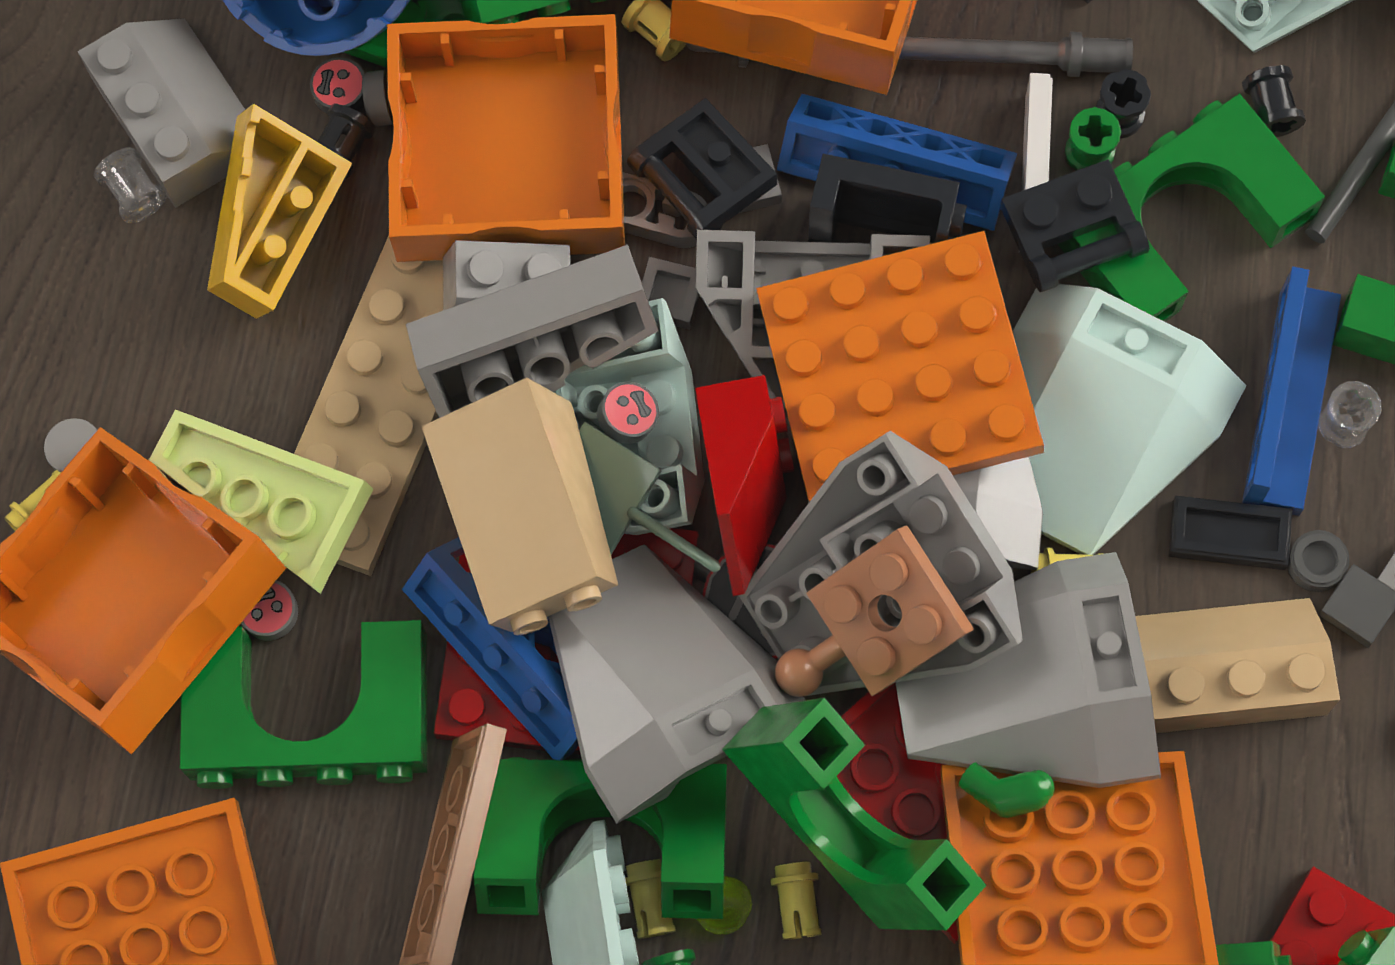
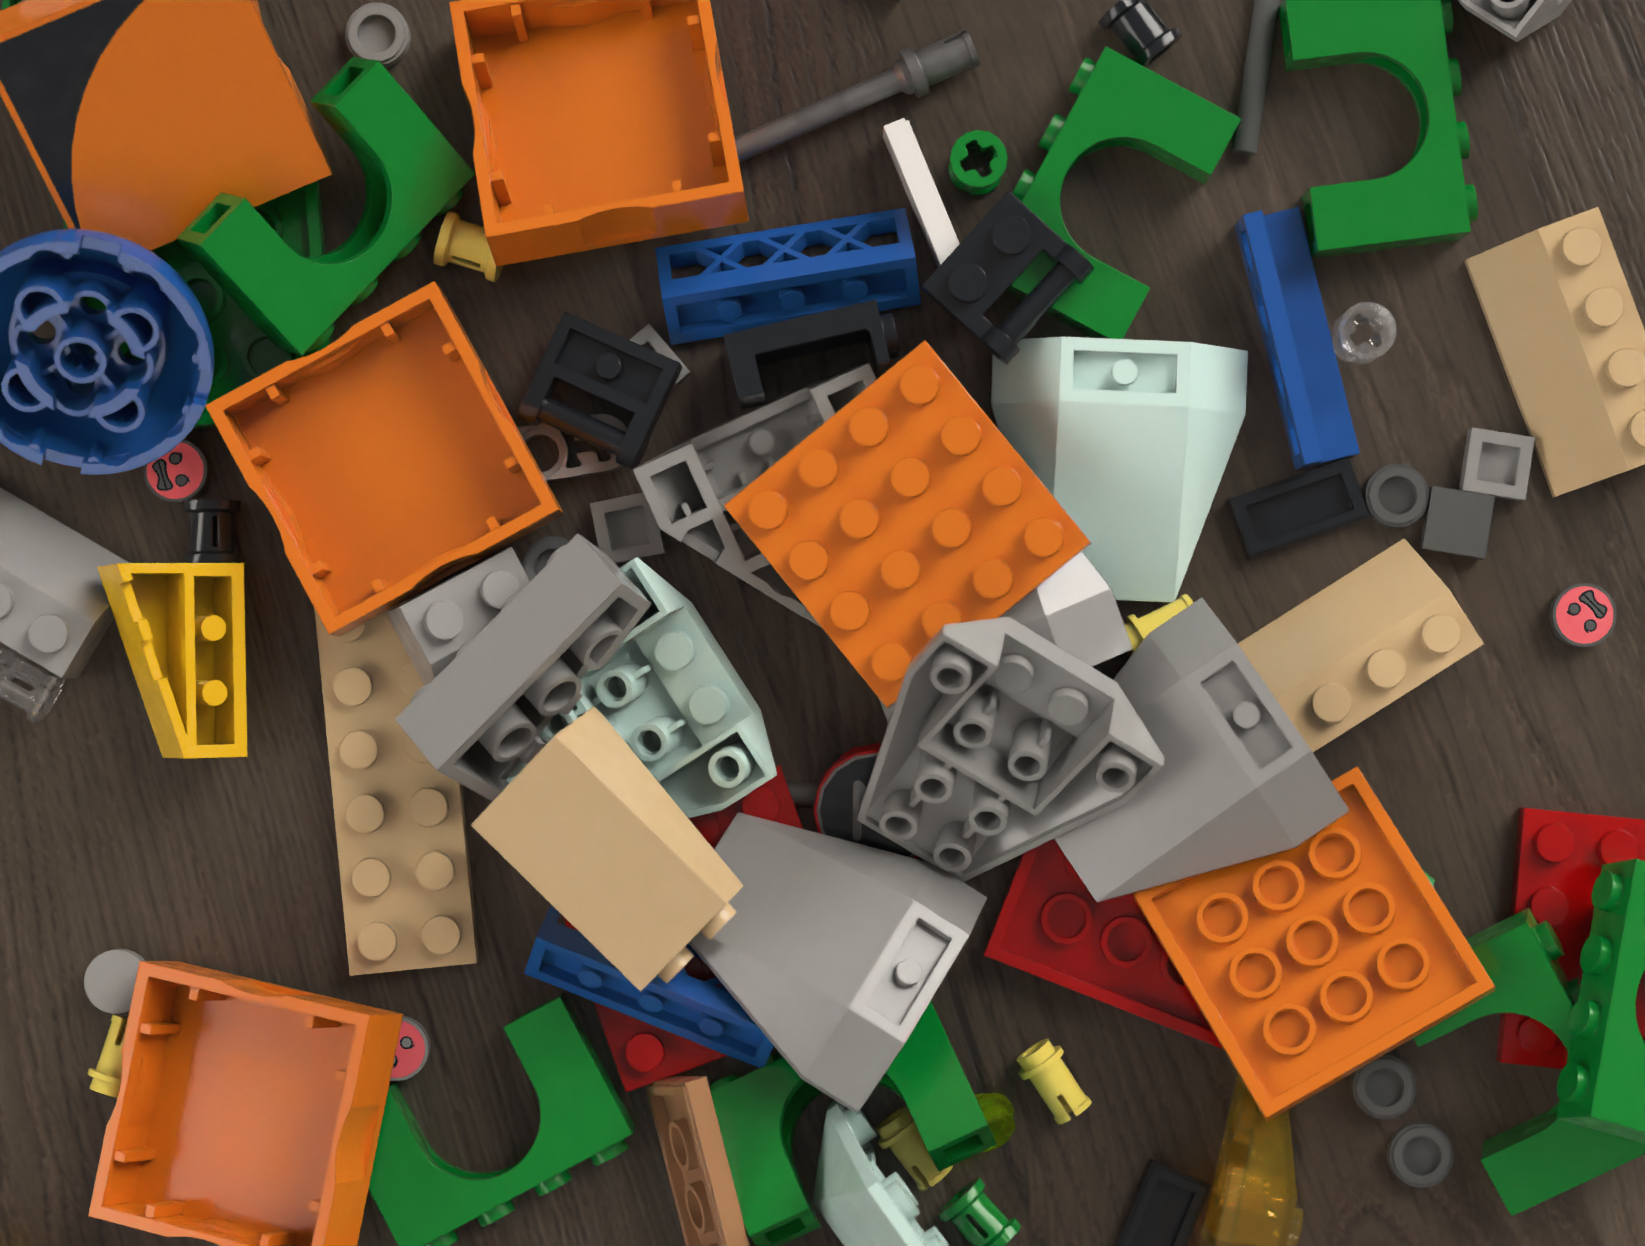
camera: 25 degrees left, 15 degrees up
(283, 498) = (346, 945): yellowish green wing -> none
(376, 97) = (223, 468): dark grey tile -> none
(621, 486) = (691, 775): sand green piece -> none
(628, 412) = (655, 687): tile -> none
(745, 468) = (798, 687): red slope -> none
(794, 763) = (1033, 996): green arch -> none
(849, 609) = (1026, 829): nougat plate -> none
(1008, 795) = (1215, 901): green arm -> none
(1128, 87) = (1004, 95): black bush -> none

